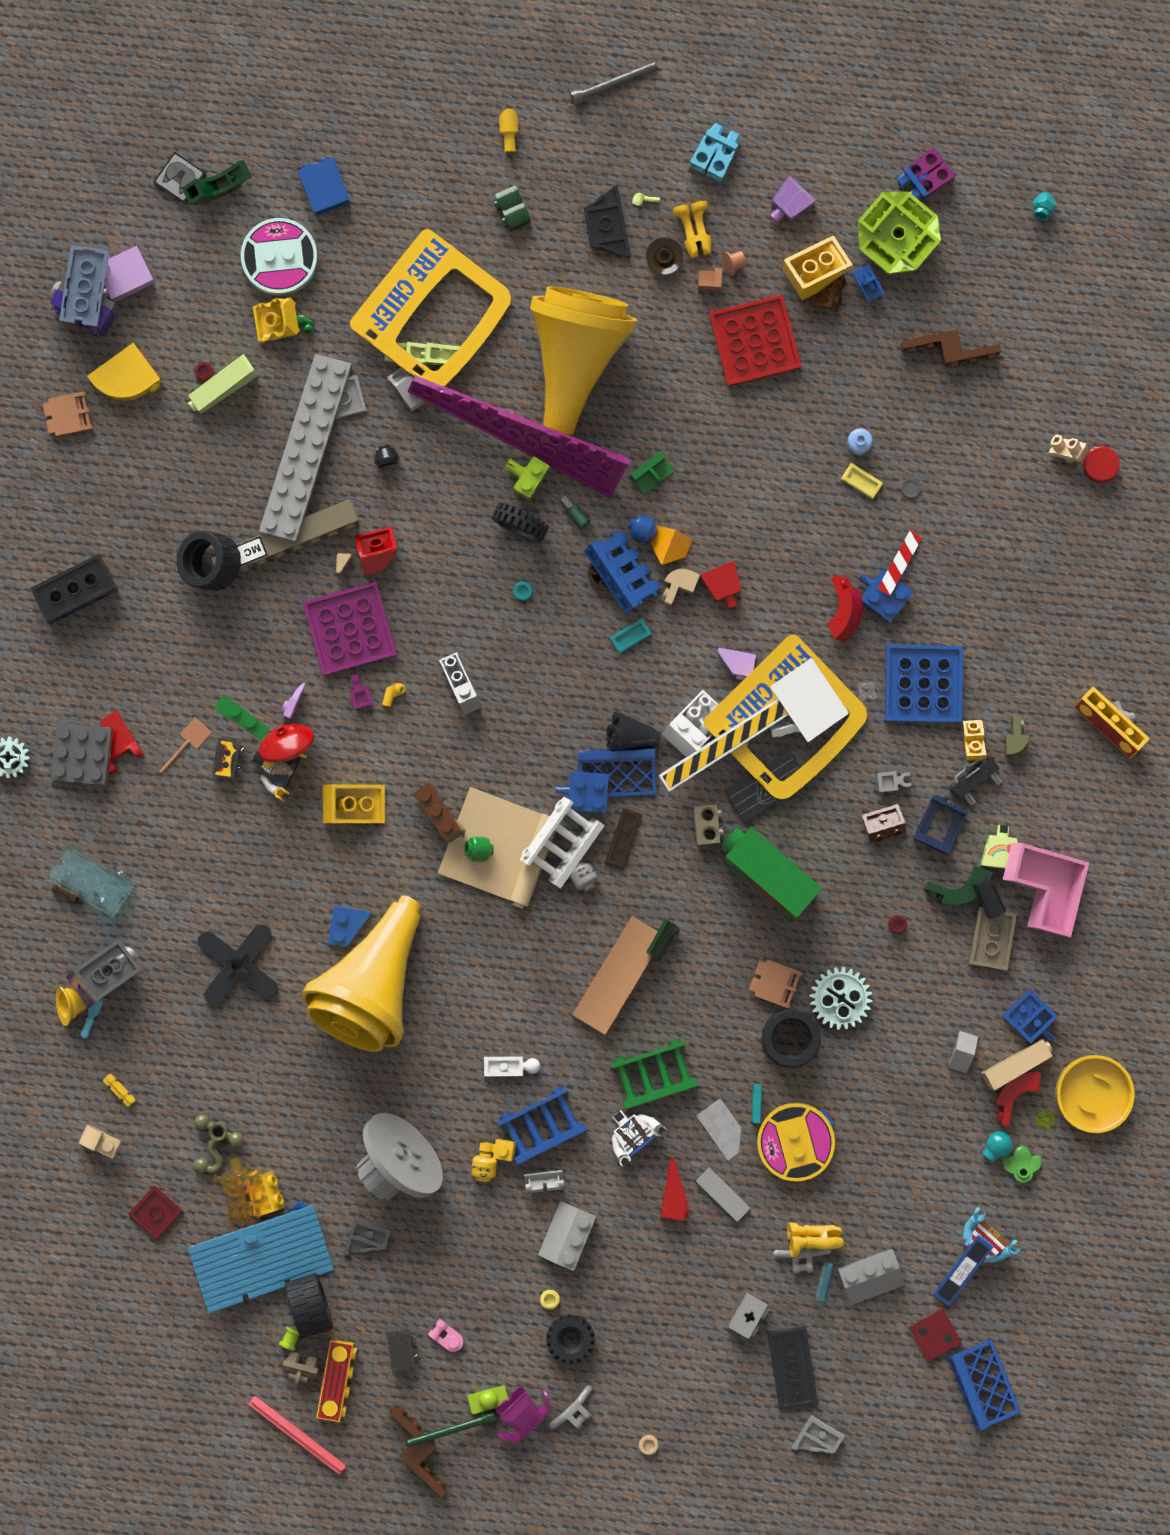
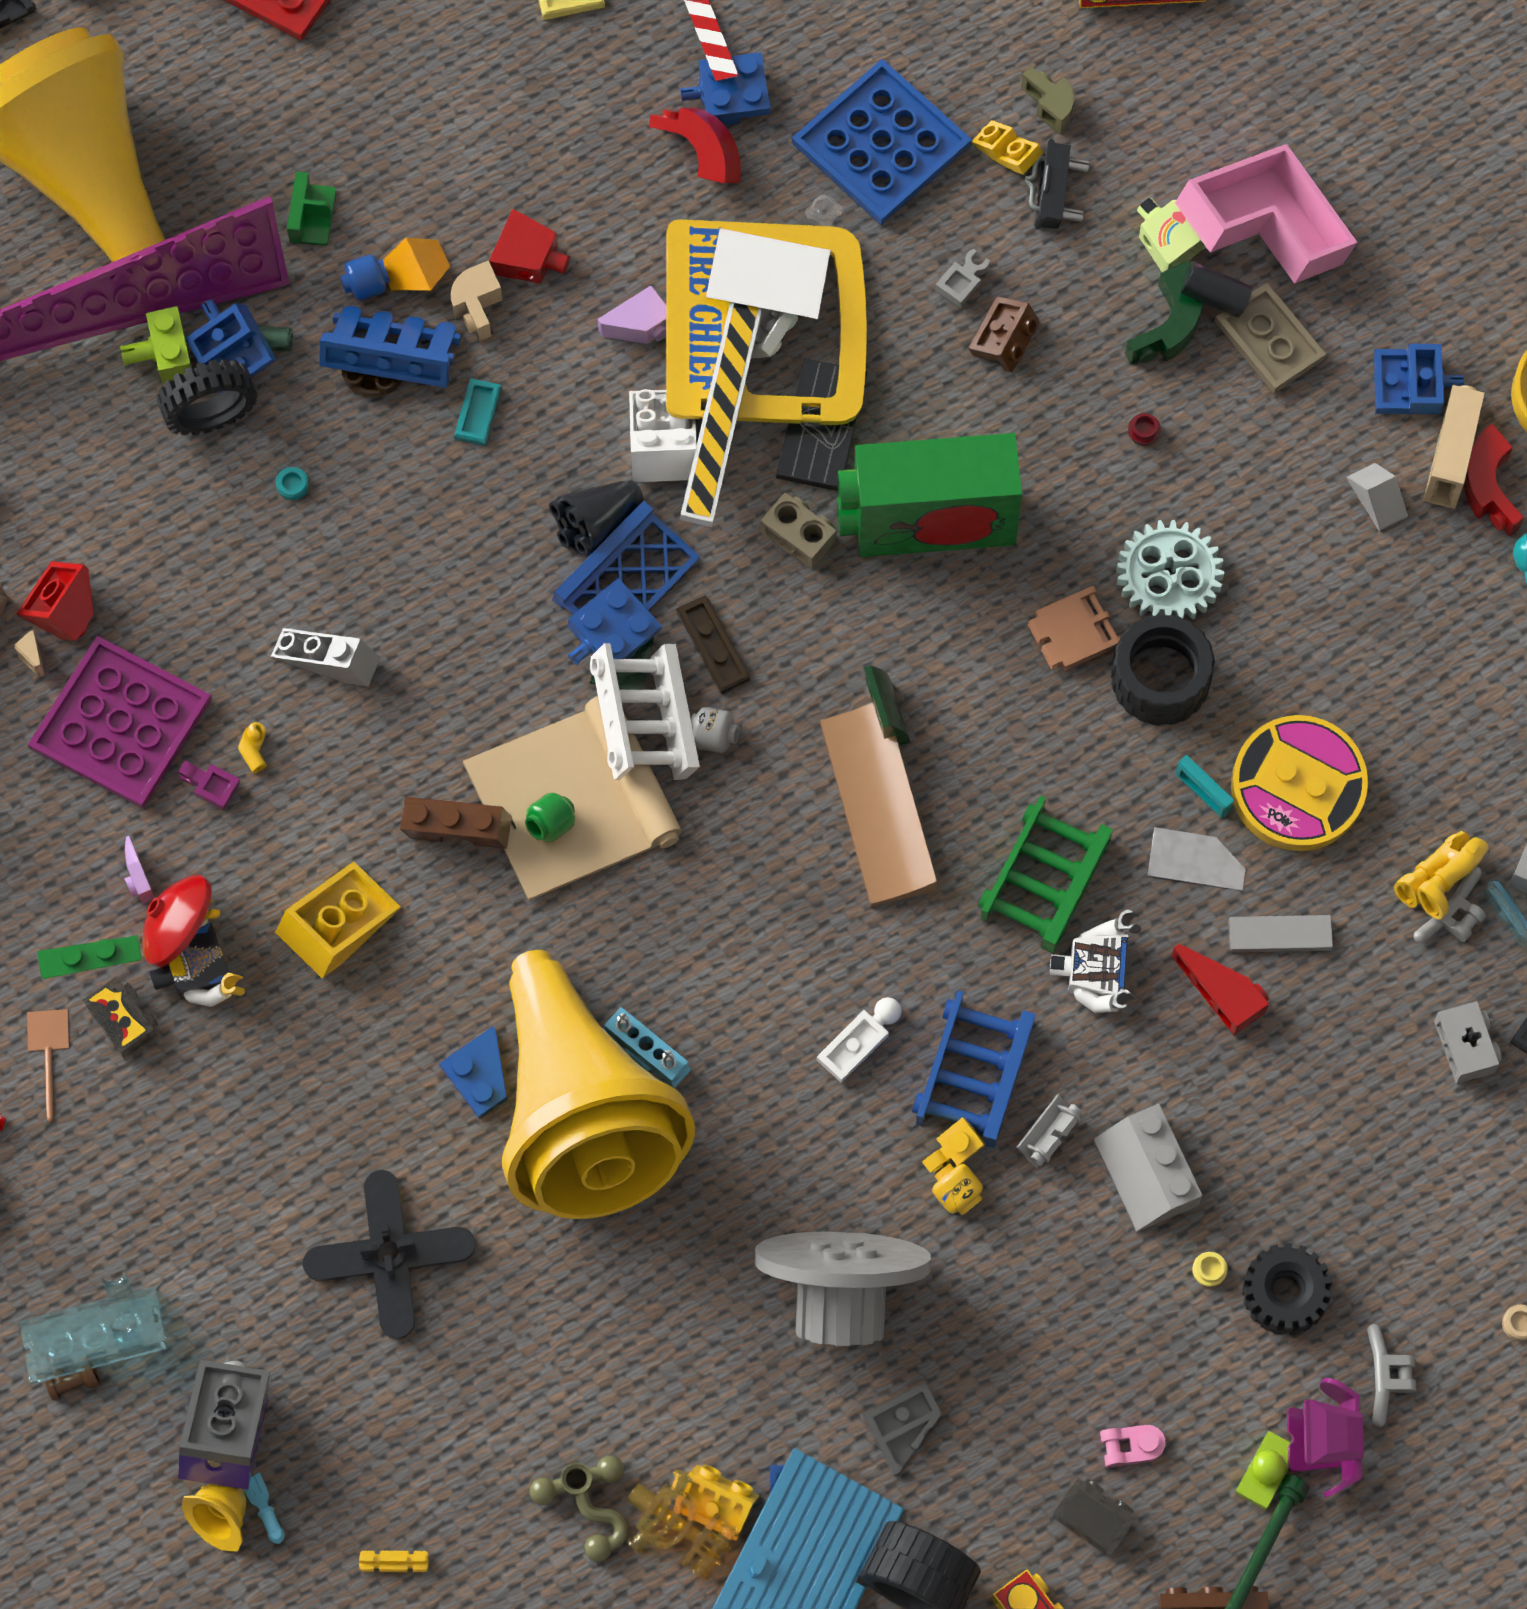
camera: 40 degrees left, 15 degrees down
(422, 1002) = (670, 1068): none -> medium azure piece
(555, 504) = (231, 337): none -> blue plate
(958, 817) = (1074, 239): dark blue panel -> none

